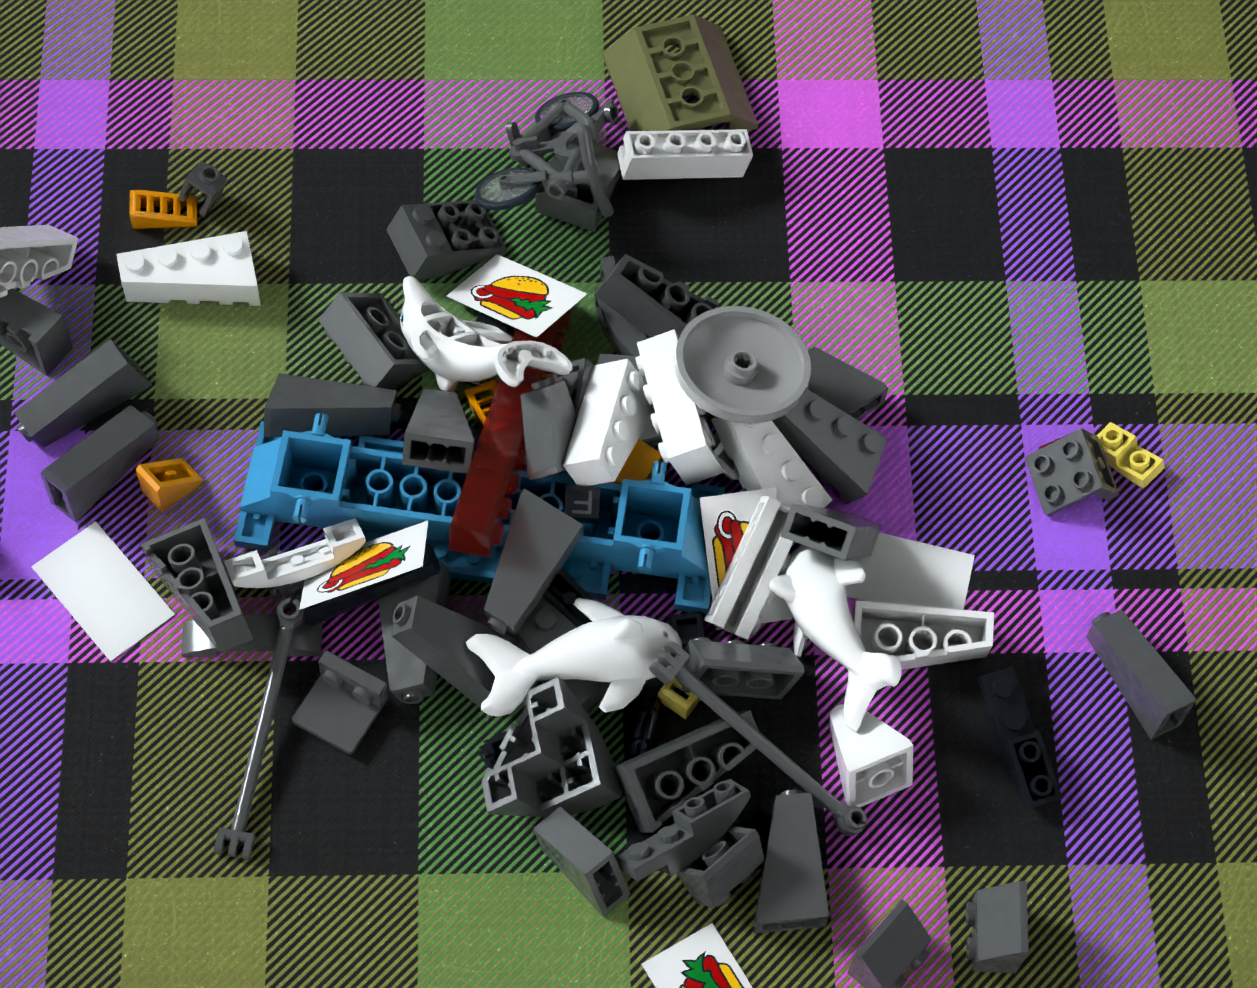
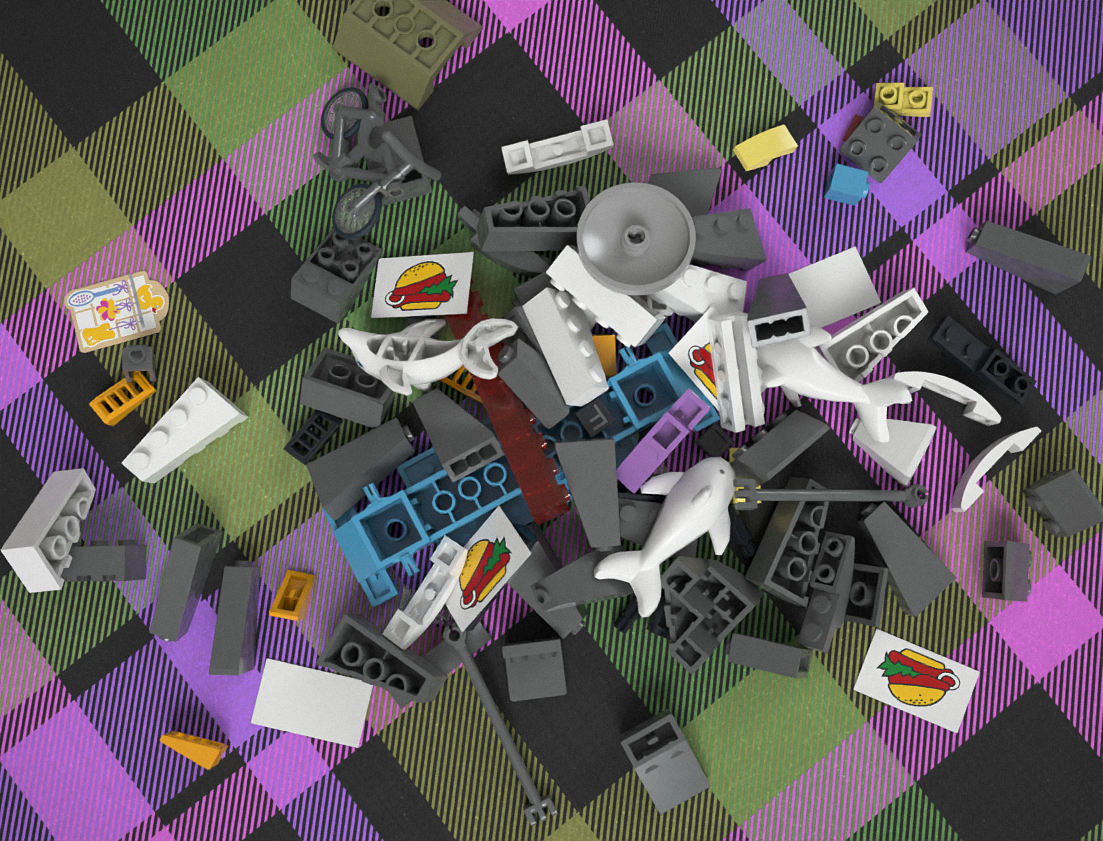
camera: 30 degrees left, 20 degrees up
(220, 137) = (117, 310): none -> sticker
(292, 351) = (298, 438): none -> black slope
(393, 880) = (664, 761): none -> dark grey slope
(480, 725) = (630, 614): none -> black axle
(626, 559) = (661, 440): none -> medium lavender slope
(684, 154) = (453, 89): white brick -> none
(741, 274) = (559, 150): none -> white slope
(933, 709) = (976, 406): none -> white slope
(946, 400) = (764, 147): none -> light yellow slope
(996, 838) = (967, 489): none -> white slope
(1005, 489) = (846, 185): none -> dark azure brick

